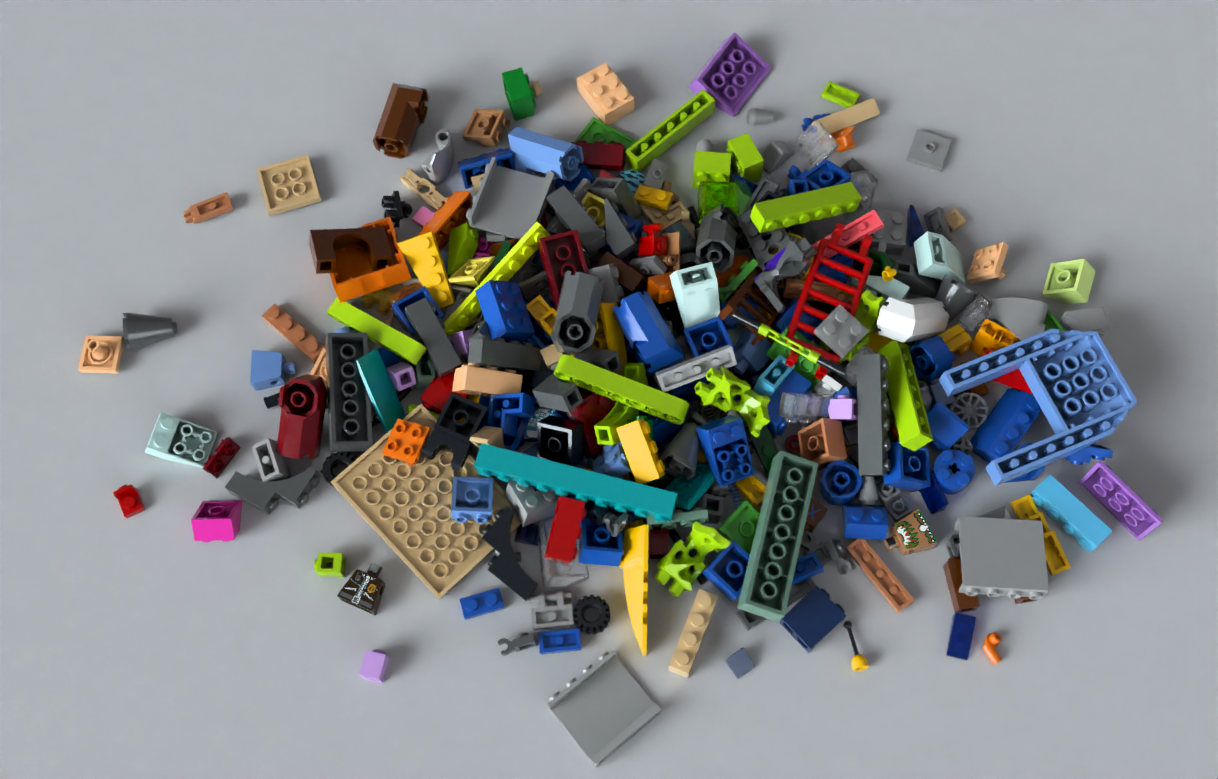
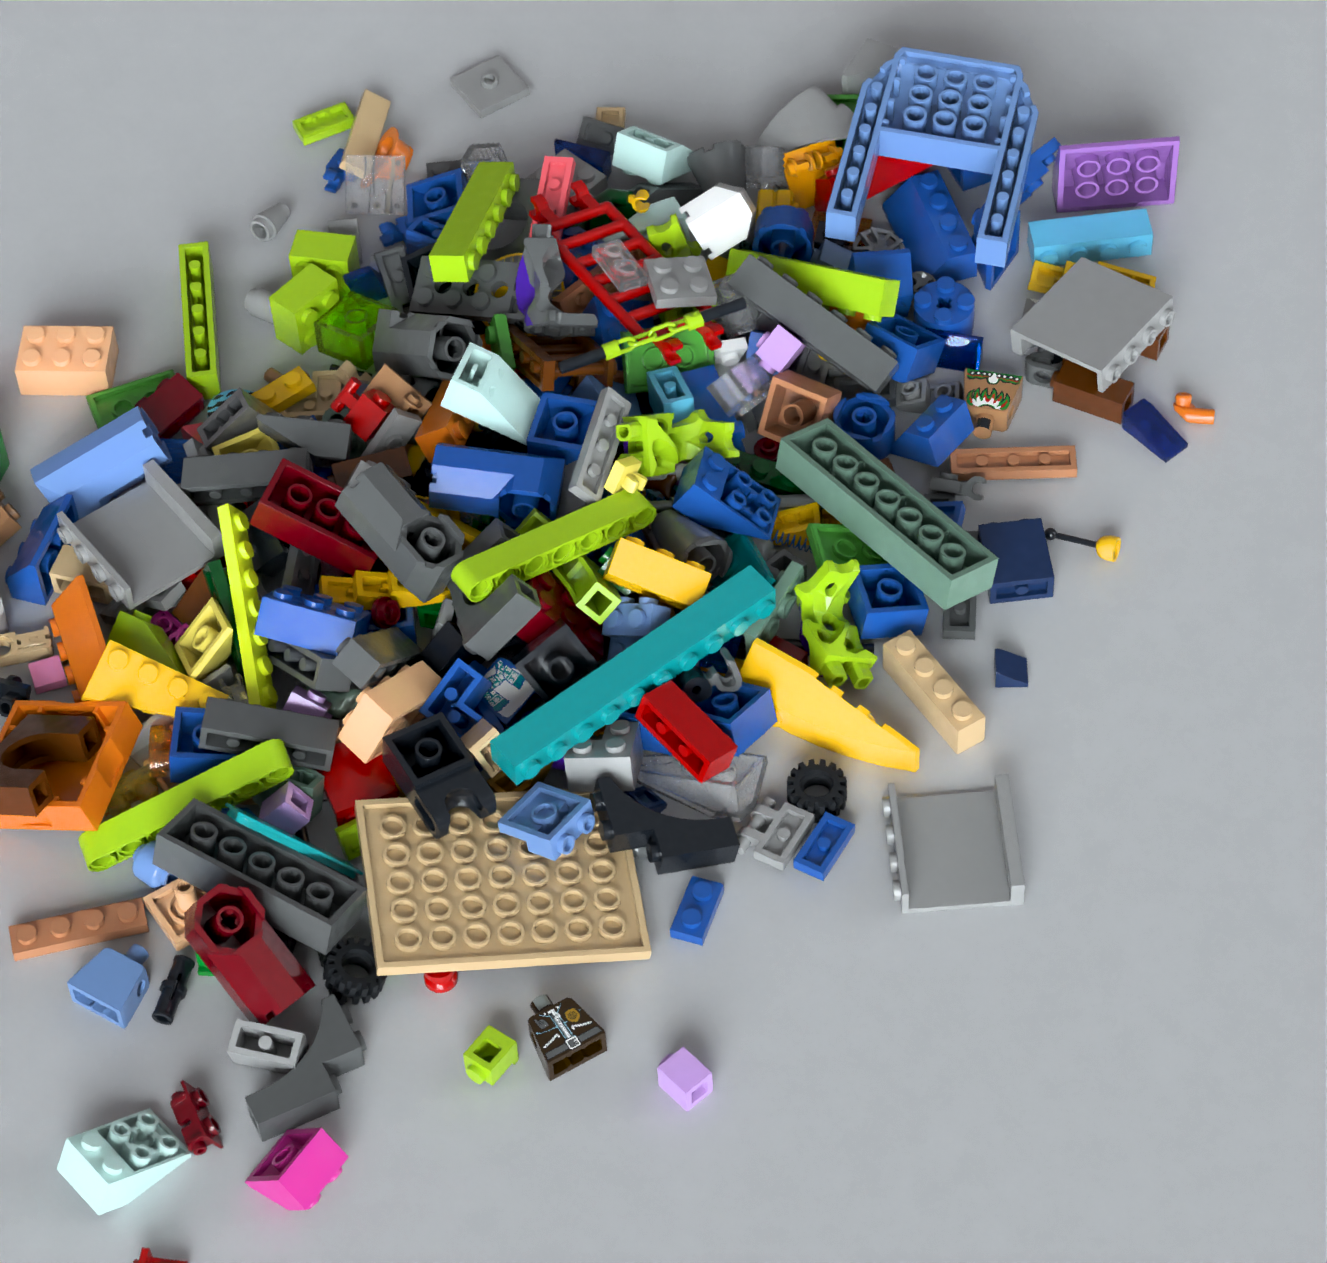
camera: 55 degrees left, 15 degrees down
(406, 441) = (401, 842): orange hinge -> none
(522, 642) = (791, 886): dark grey plate -> none
(541, 338) = (385, 612): none -> dark red plate
(550, 355) = (420, 617): tan tile -> none
(656, 174) = (245, 374): light grey plate -> none
(688, 393) = (625, 476): none -> light yellow tile
(731, 74) = (172, 209): medium lavender slope -> none
(826, 295) = (619, 265): none -> clear plate
(868, 491) = (904, 409): light grey cone -> none
(988, 263) = (704, 115): light nougat plate -> none
(1069, 281) = (797, 61): yellowish green slope -> none

